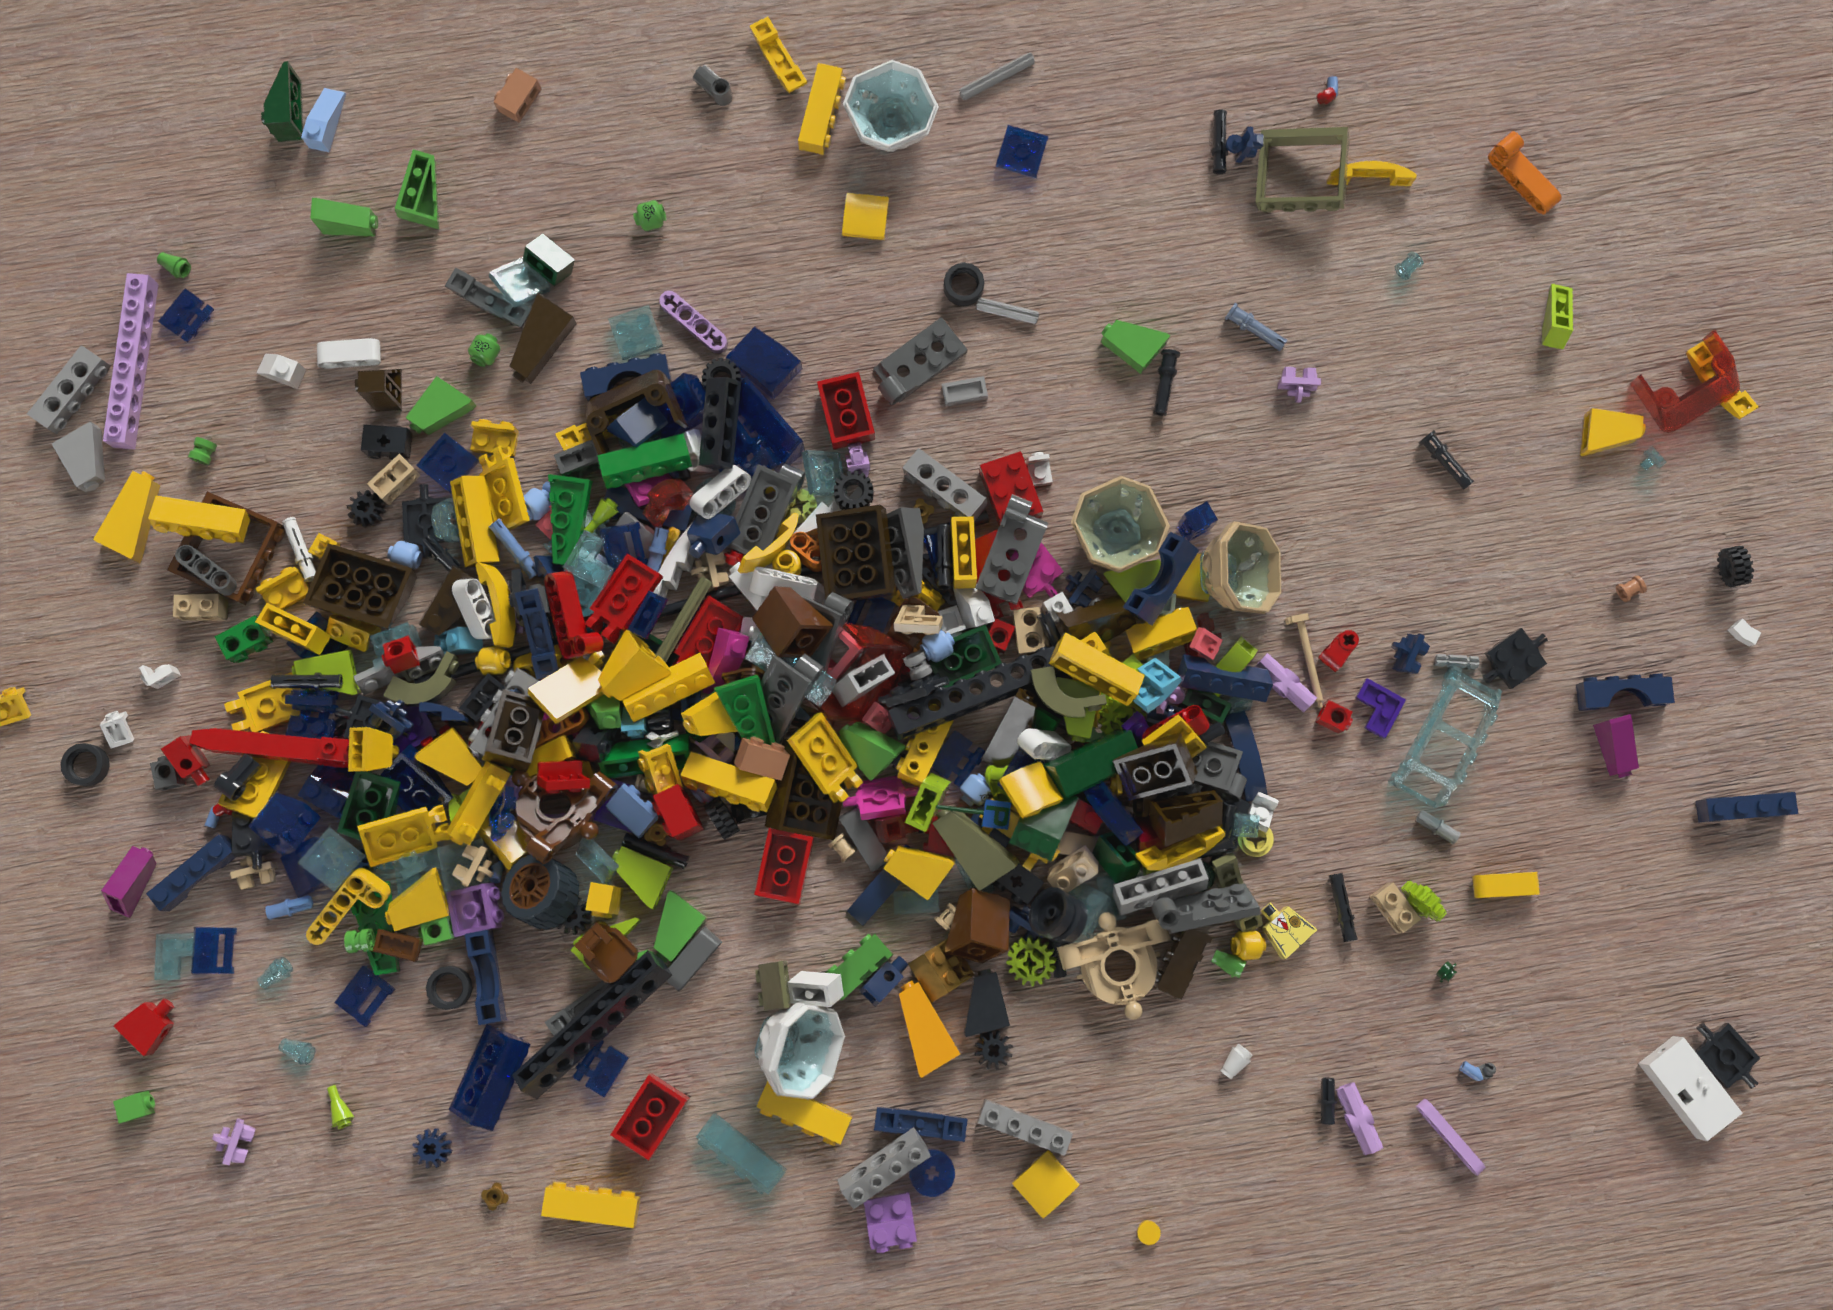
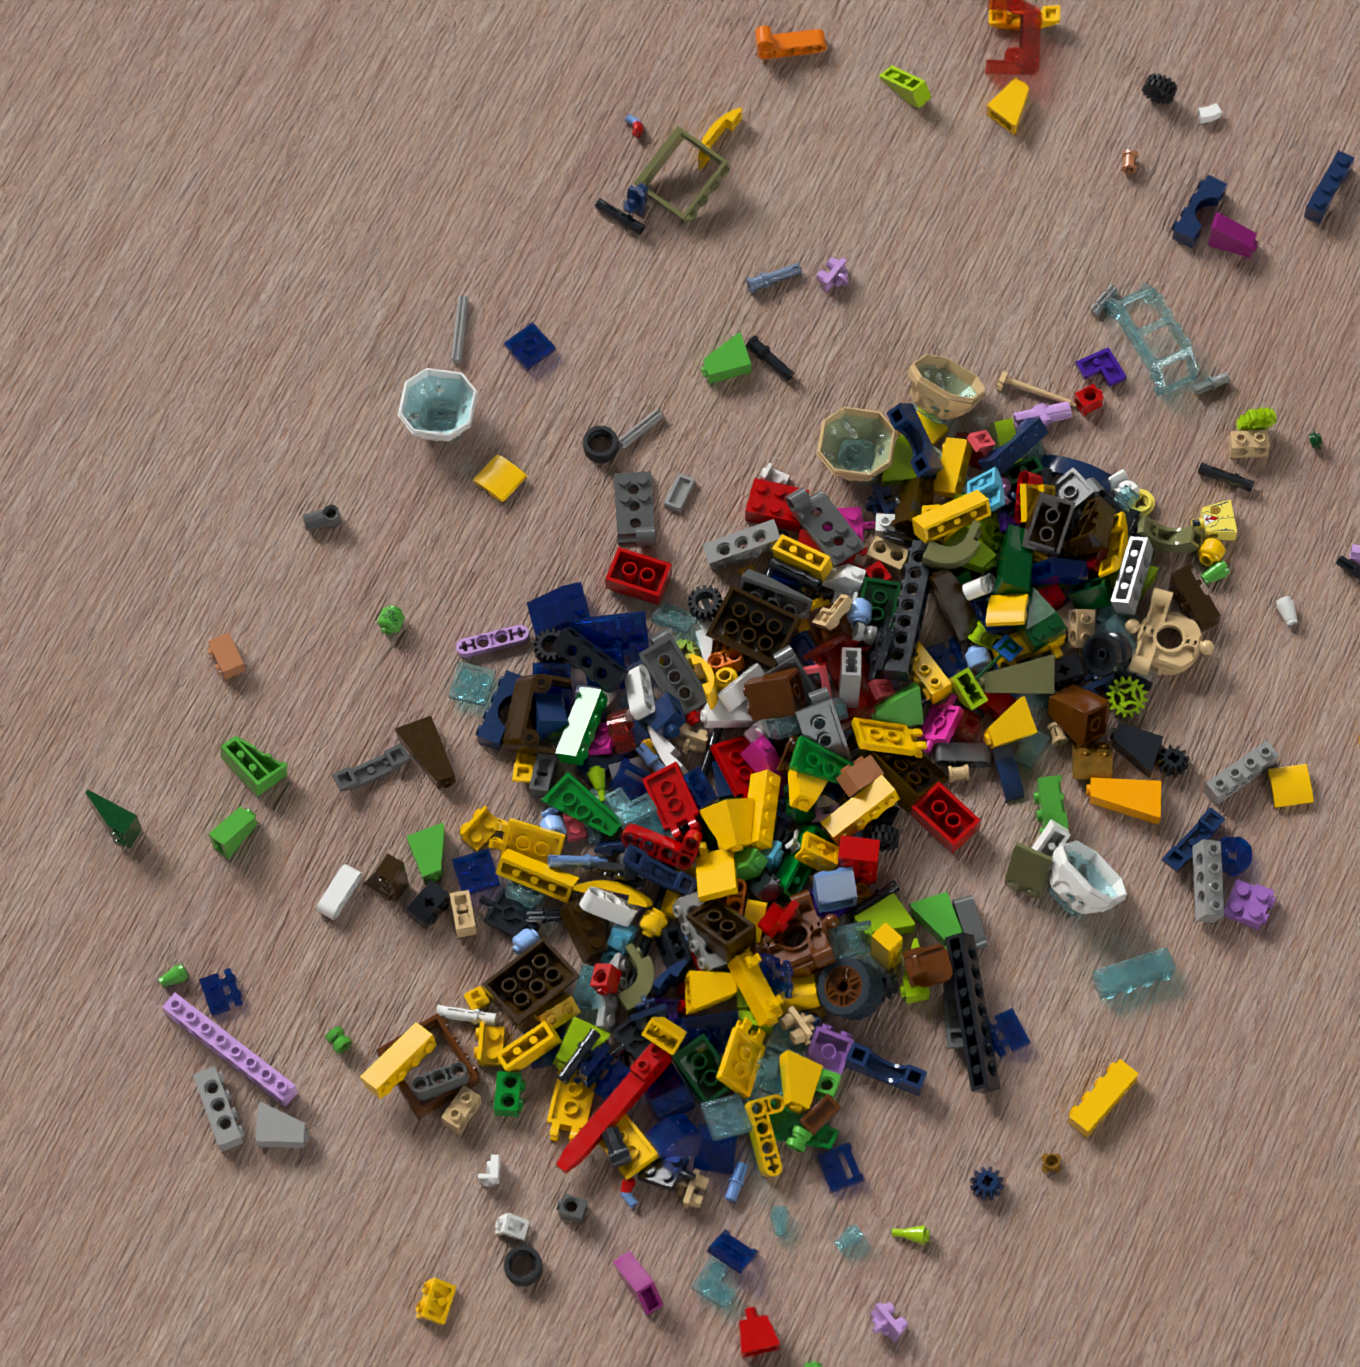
camera: 50 degrees left, 15 degrees down
(127, 521) = (354, 1122): yellow slope -> none
(176, 885) = (663, 1232): dark blue arch -> none
(180, 754) = (573, 1183): red torso -> none
(281, 370) = (315, 947): white slope -> none
(323, 120) = (141, 802): light blue slope -> none
(373, 512) = (465, 944): black gear -> none
(434, 978) = (875, 1088): black tyre -> none
(484, 350) = (408, 794): bright green head -> none
(489, 1077) = (960, 1113): clear blue slope -> none
(519, 282) = (375, 738): clear light blue plate -> none
(548, 259) = (373, 708): brick -> none
(650, 1116) = (1065, 1016): red brick -> none
(683, 618) = (713, 770): olive axle -> none
(777, 55) = (333, 464): yellow slope -> none
(806, 1113) = (1132, 912): yellow brick -> none
(820, 109) = (396, 457): yellow brick -> none
(857, 459) = (680, 590): lavender hips -> none
(877, 987) = (1075, 803): dark blue torso -> none
(1197, 521) = (887, 395): clear blue brick -> none
(1205, 908) = (1167, 553): dark grey hinge -> none
(1337, 652) = (1043, 366): red piece -> none
(1407, 651) = (1075, 325): dark blue hips -> none
(1409, 265) = (799, 150): clear light blue bush -> none
(1436, 453) = (947, 218): black pin -> none
(1506, 885) = (1280, 366): yellow beam -> none
(1515, 658) = (1127, 263): black plate -> none
(1653, 458) = (1049, 92): clear light blue tile -> none

